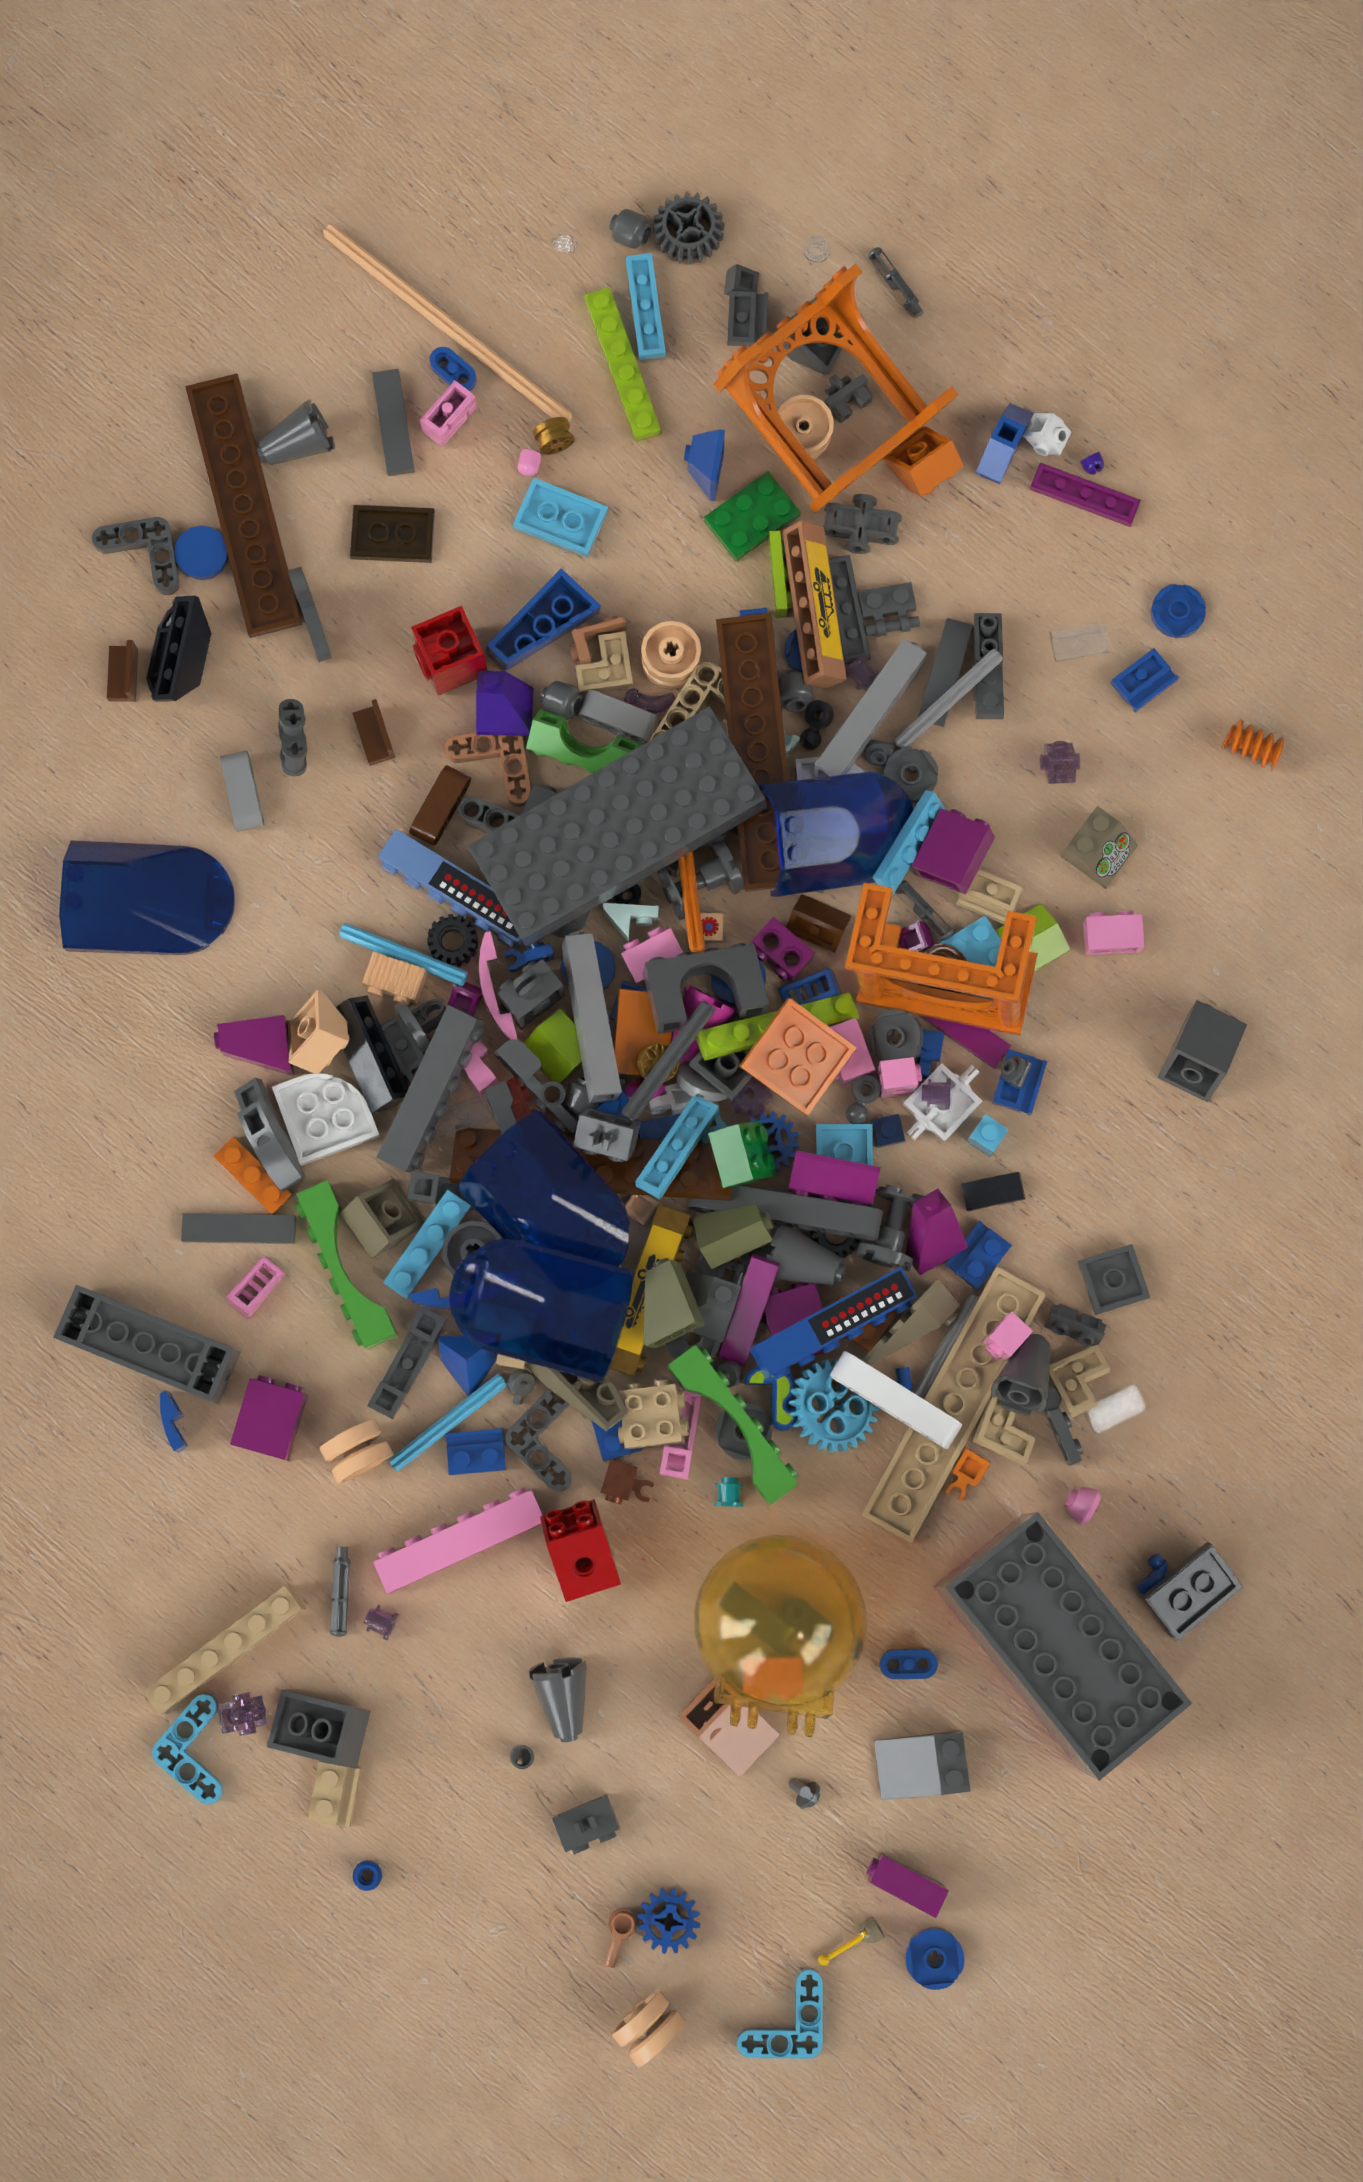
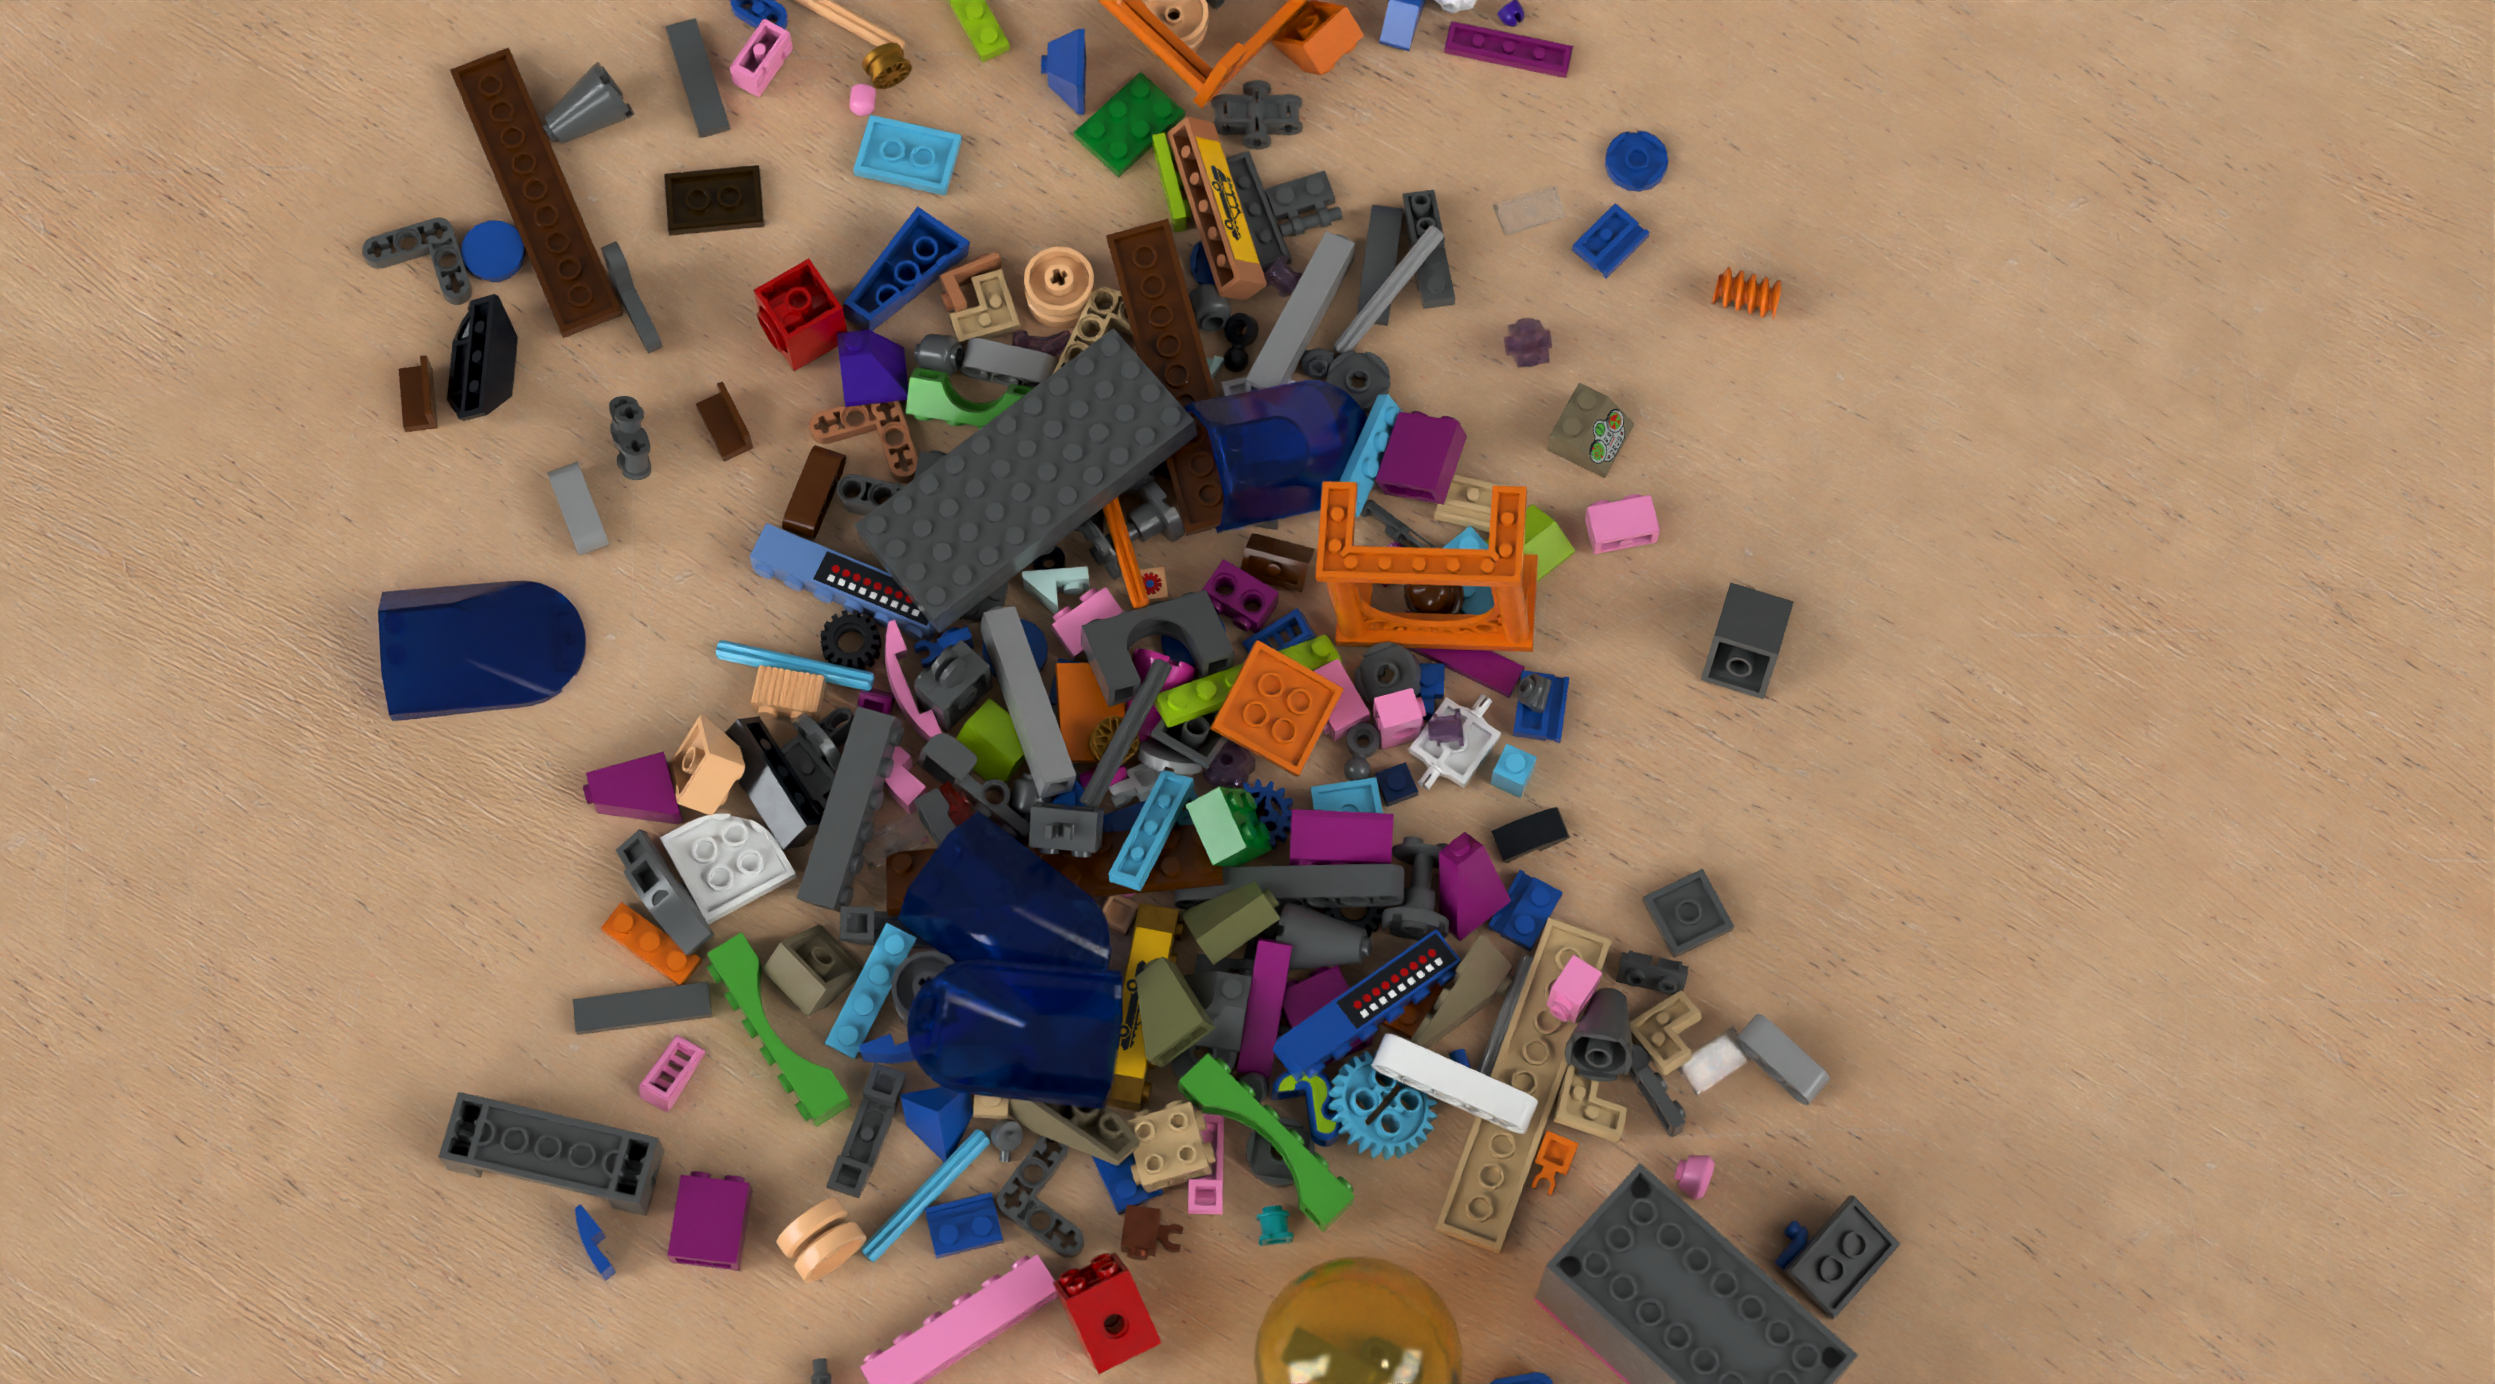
camera: 10 degrees left, 10 degrees down
(1171, 1417) = (1782, 1059): none -> light grey beam

